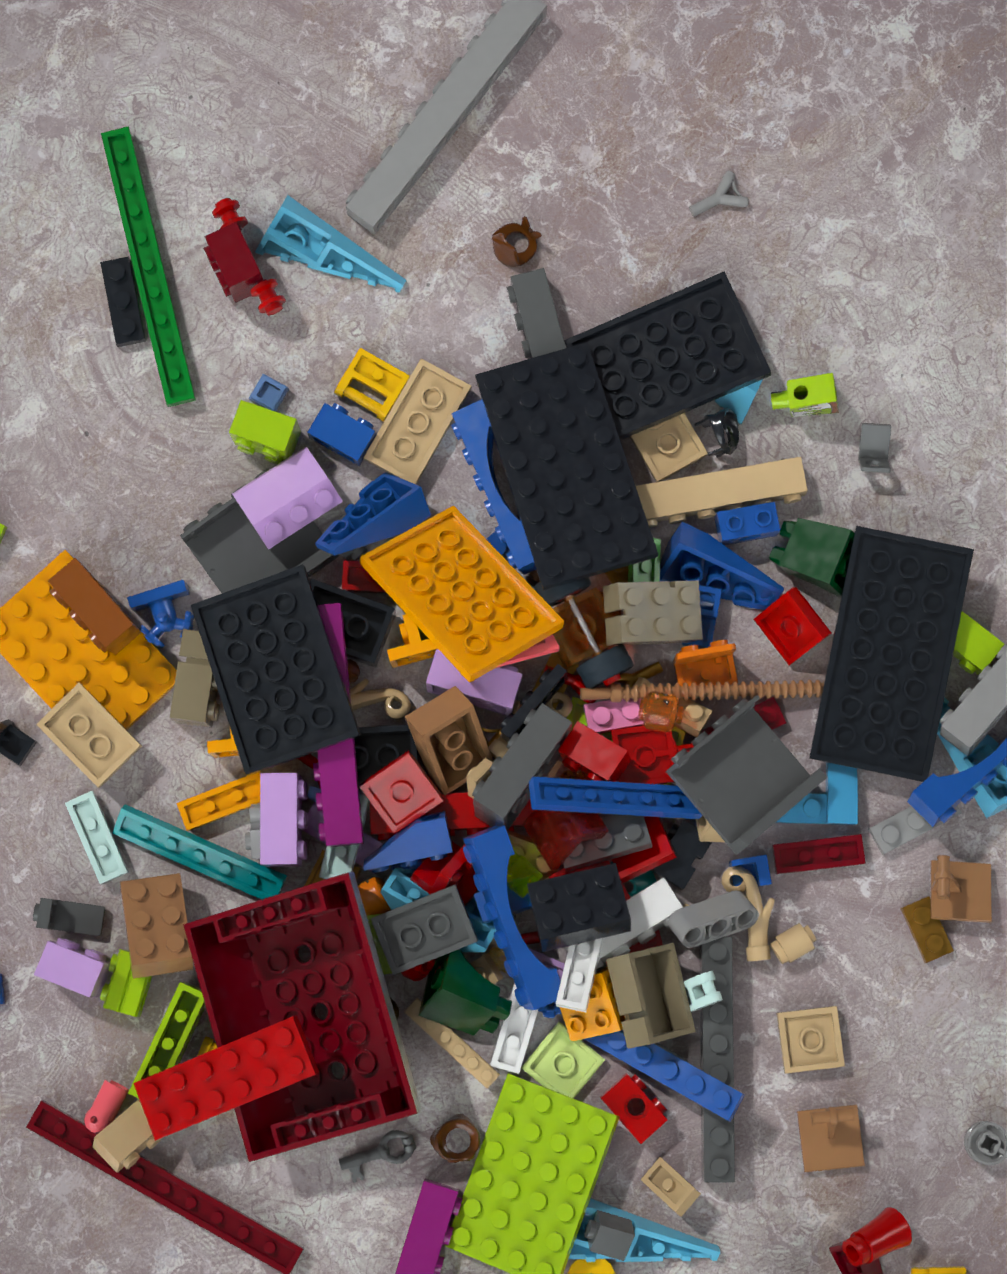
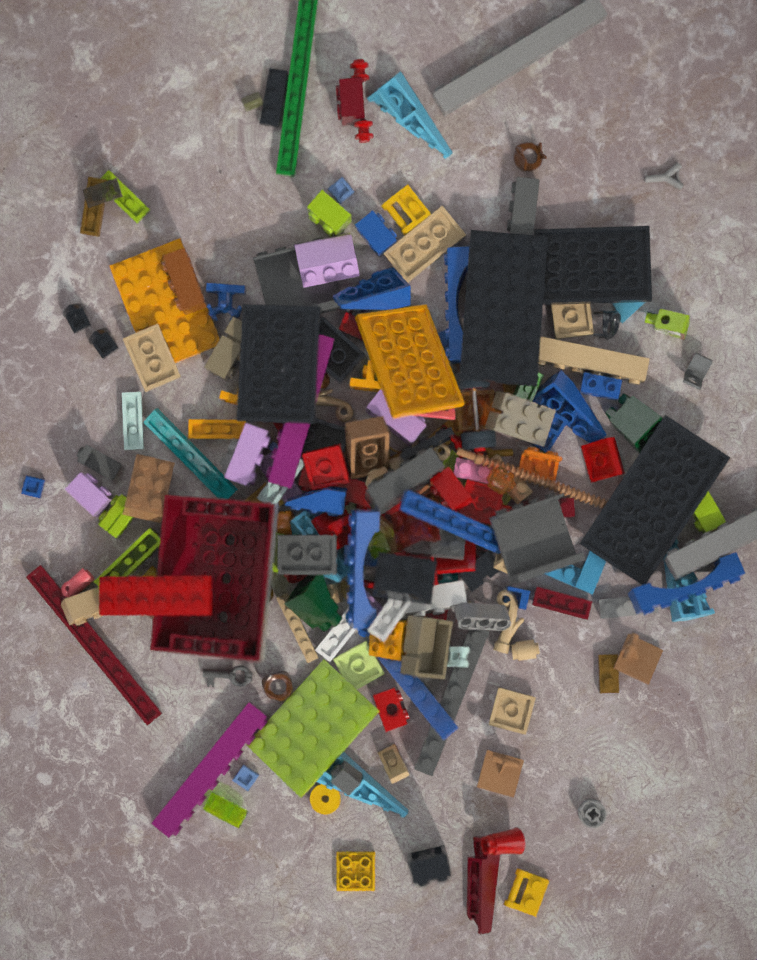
camera: 20 degrees right, 5 degrees up
(94, 319) = (252, 101): none -> olive slope

